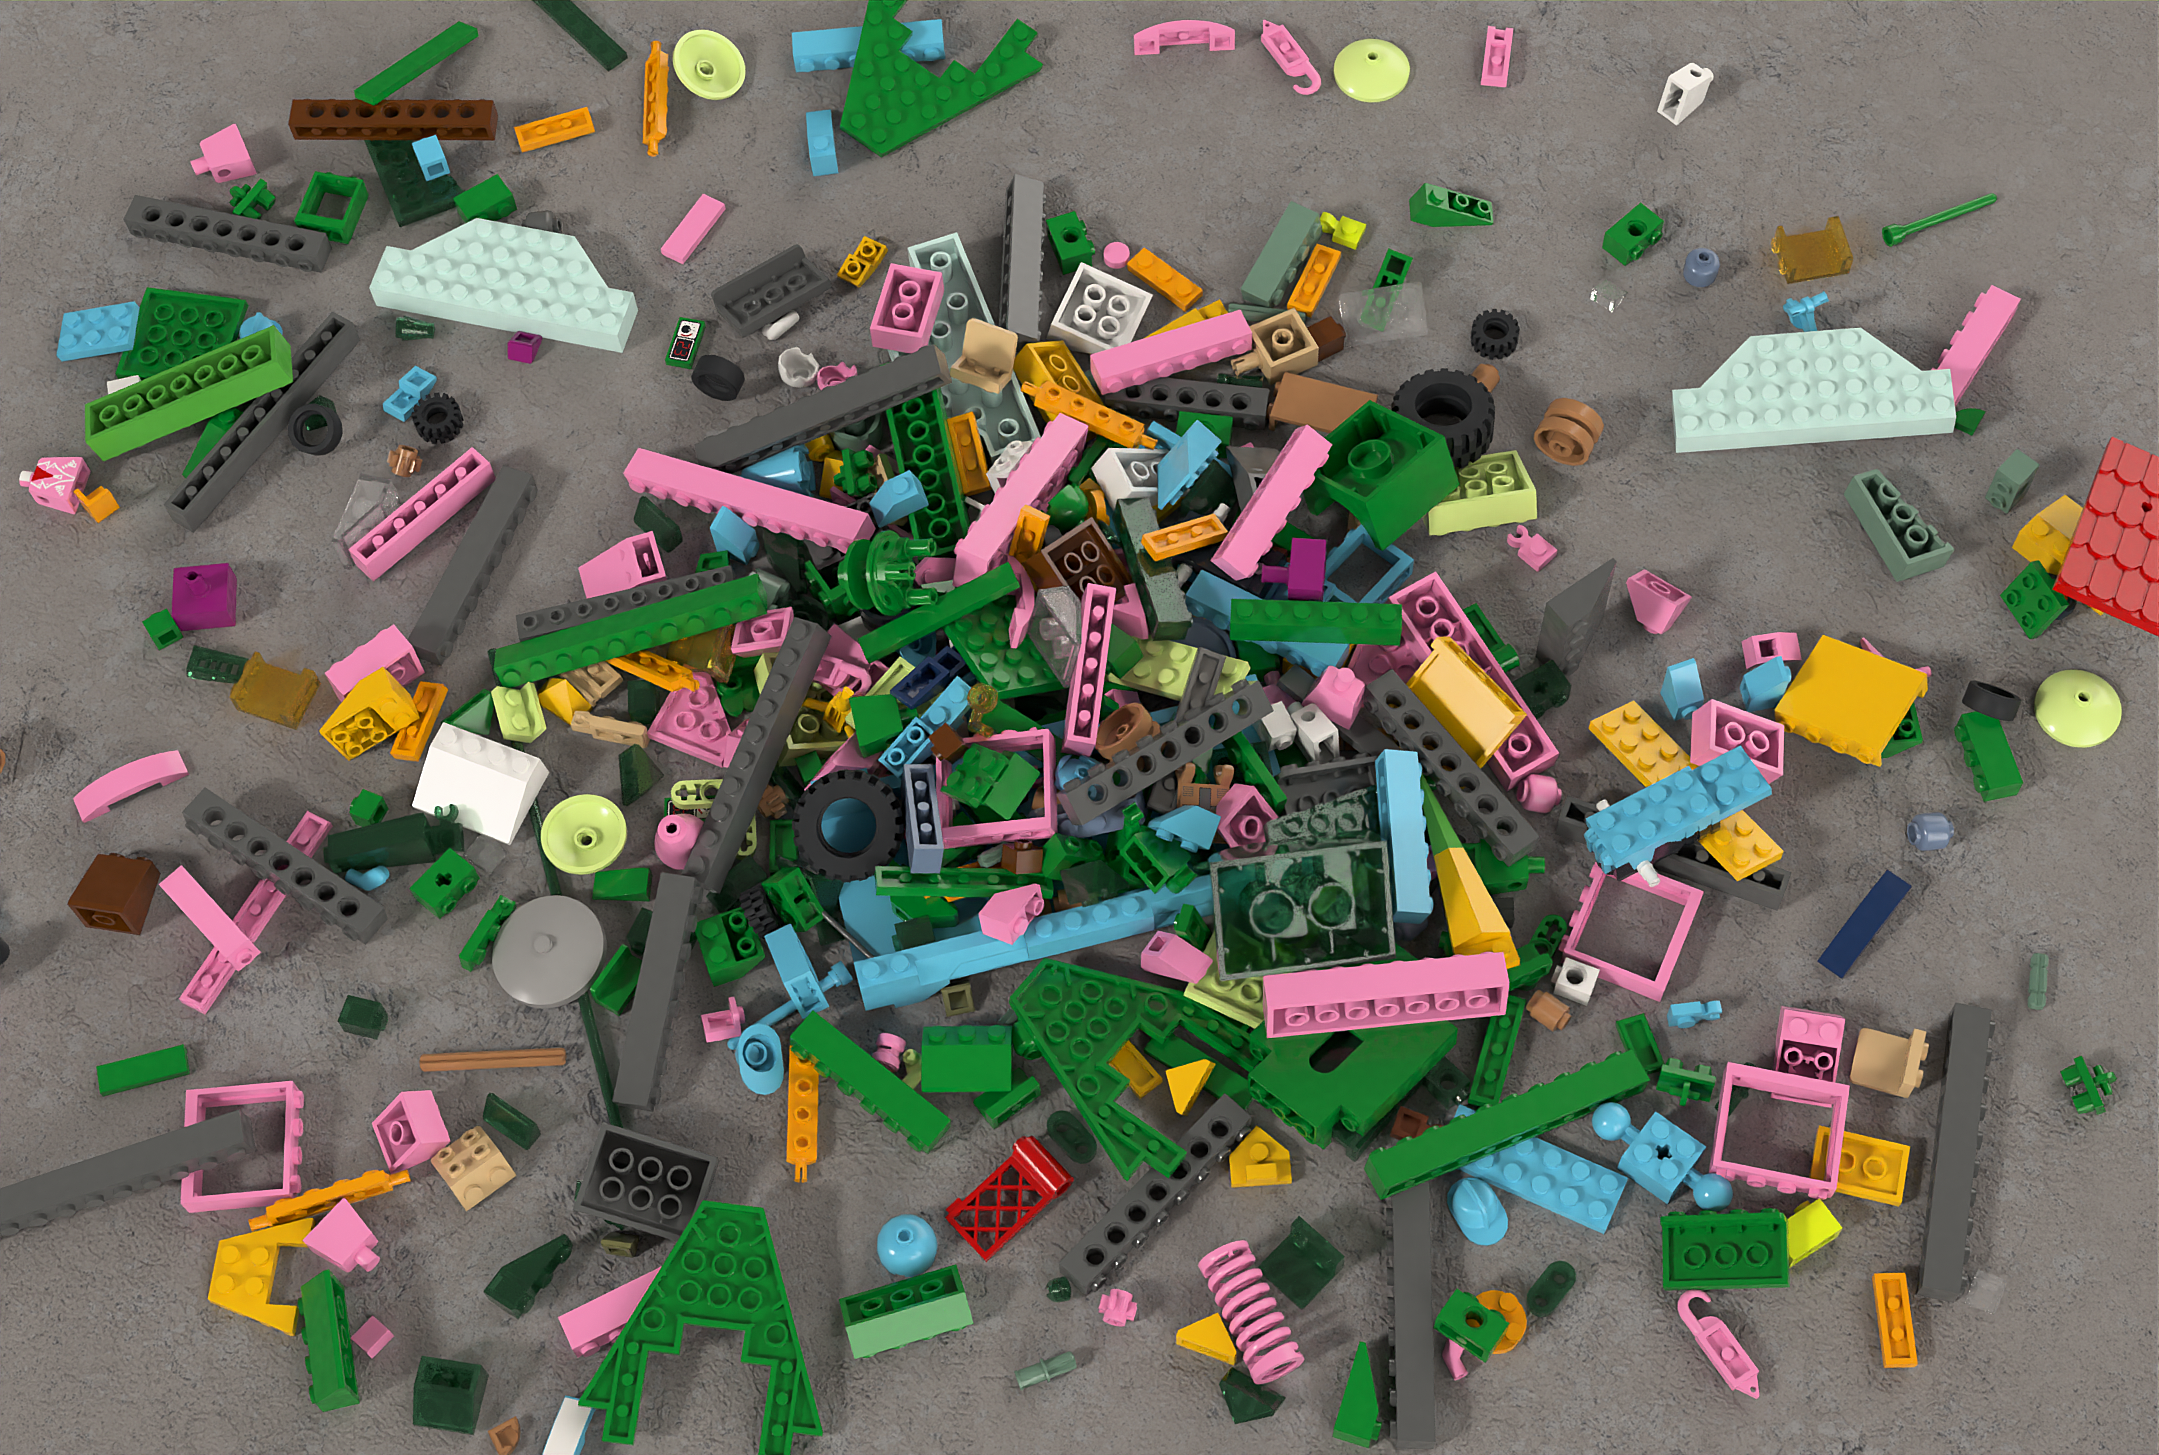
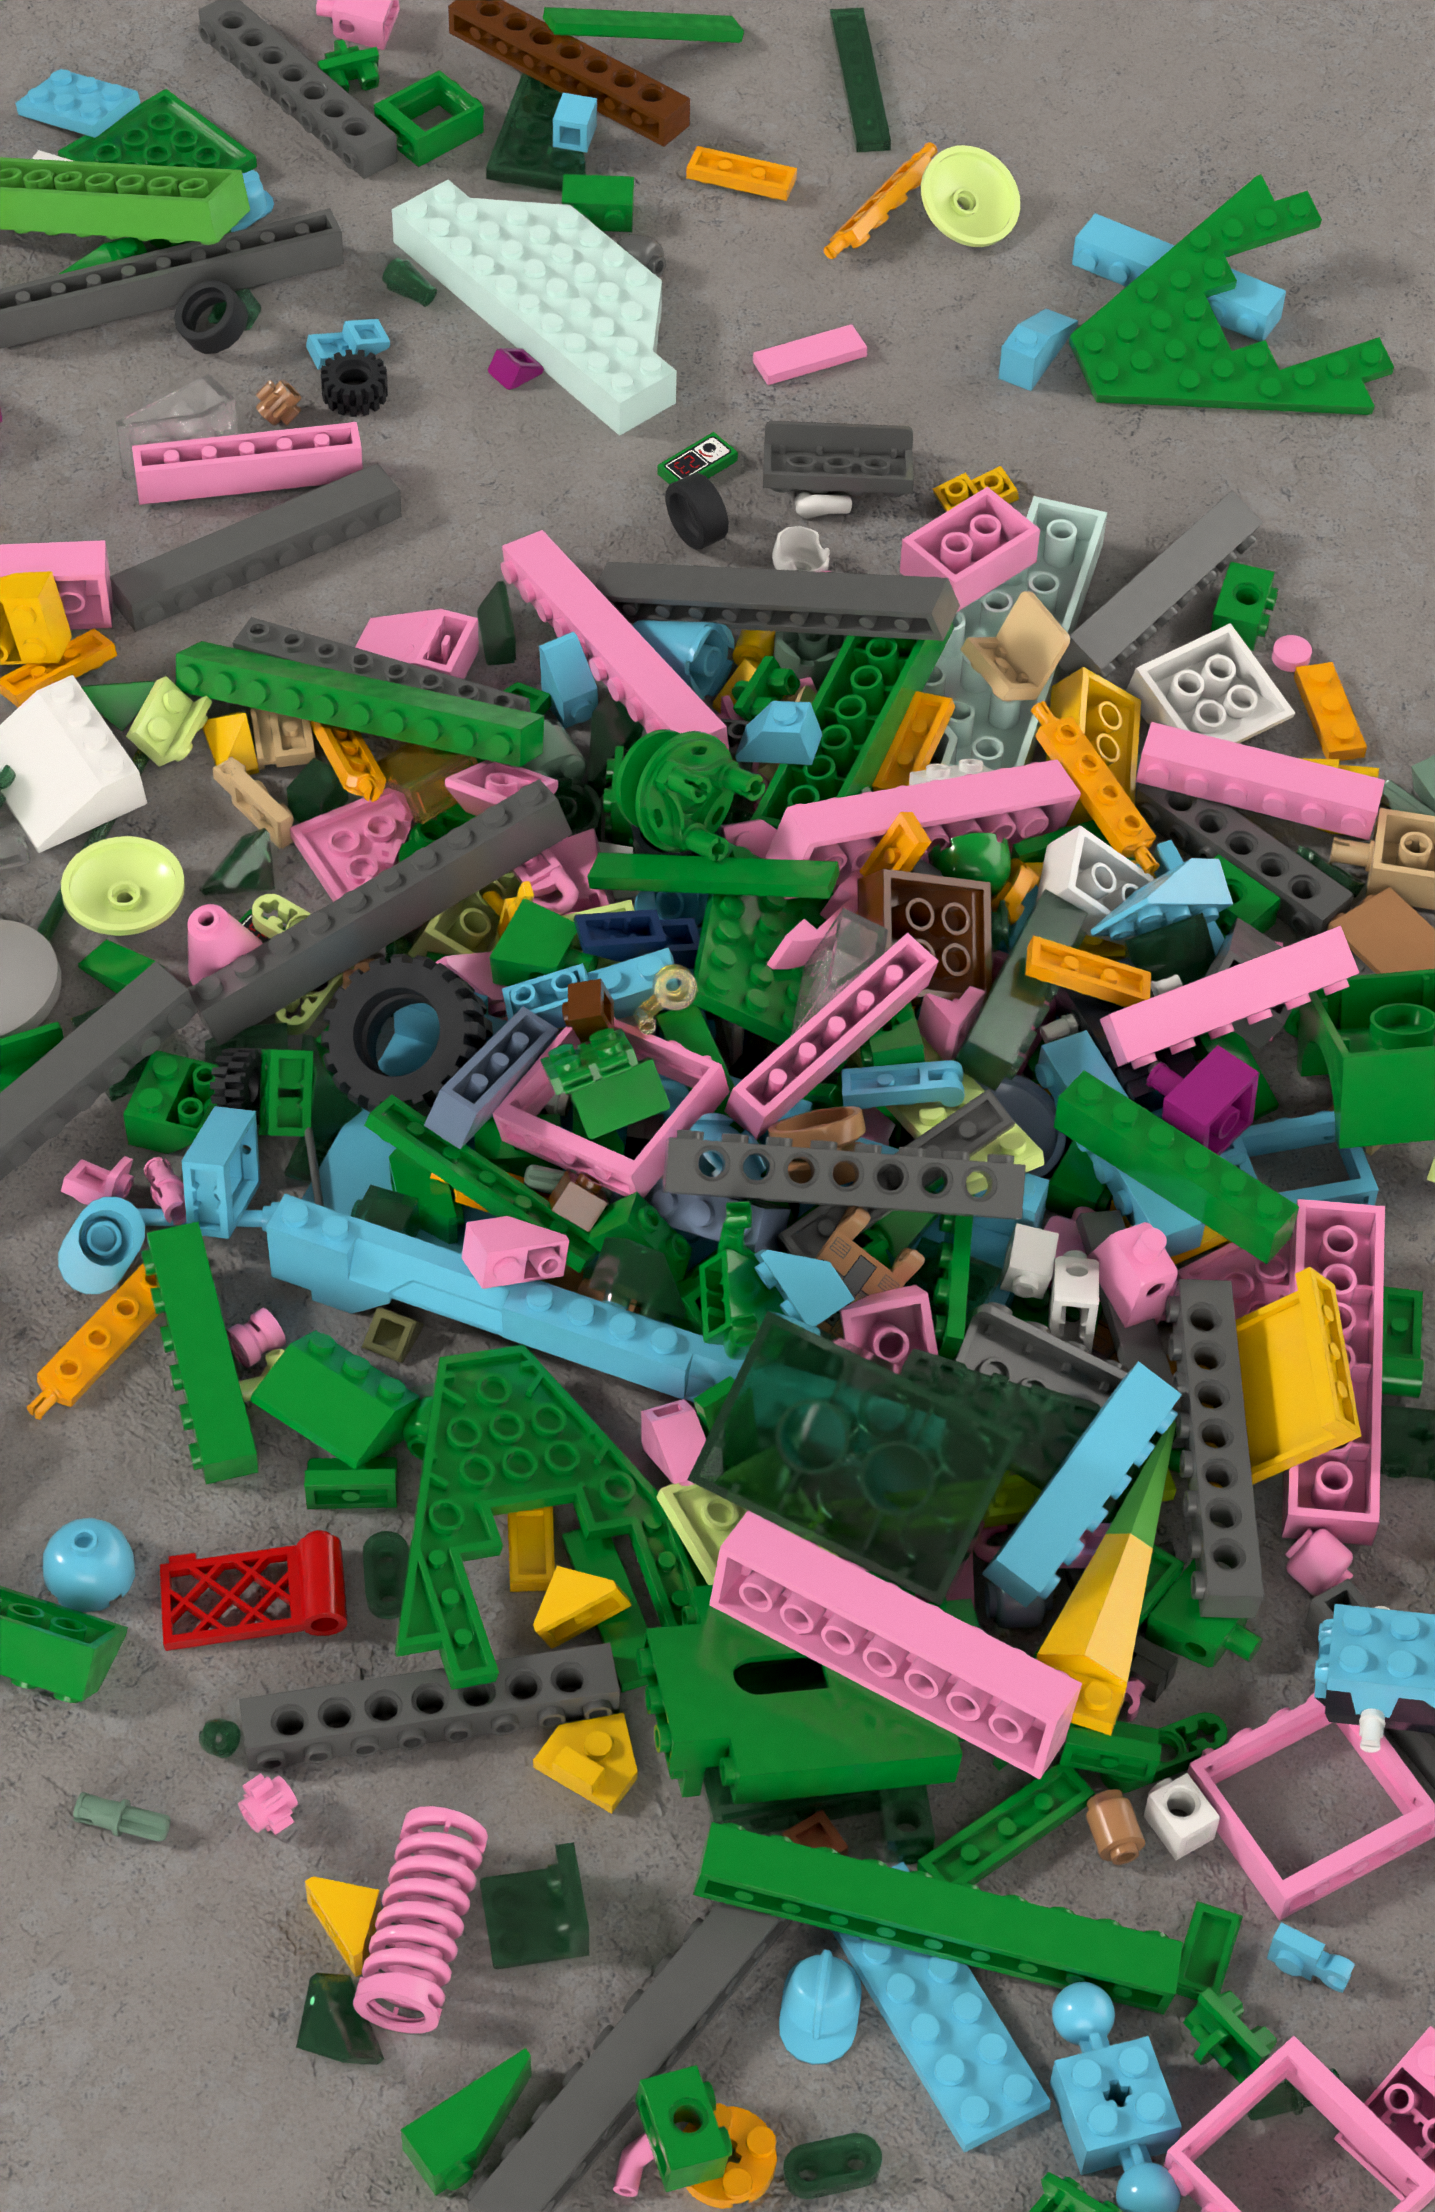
camera: 30 degrees right, 10 degrees down
(767, 1001) = (166, 1190): none -> bright pink pin
(1139, 670) = (904, 1084): none -> medium azure plate

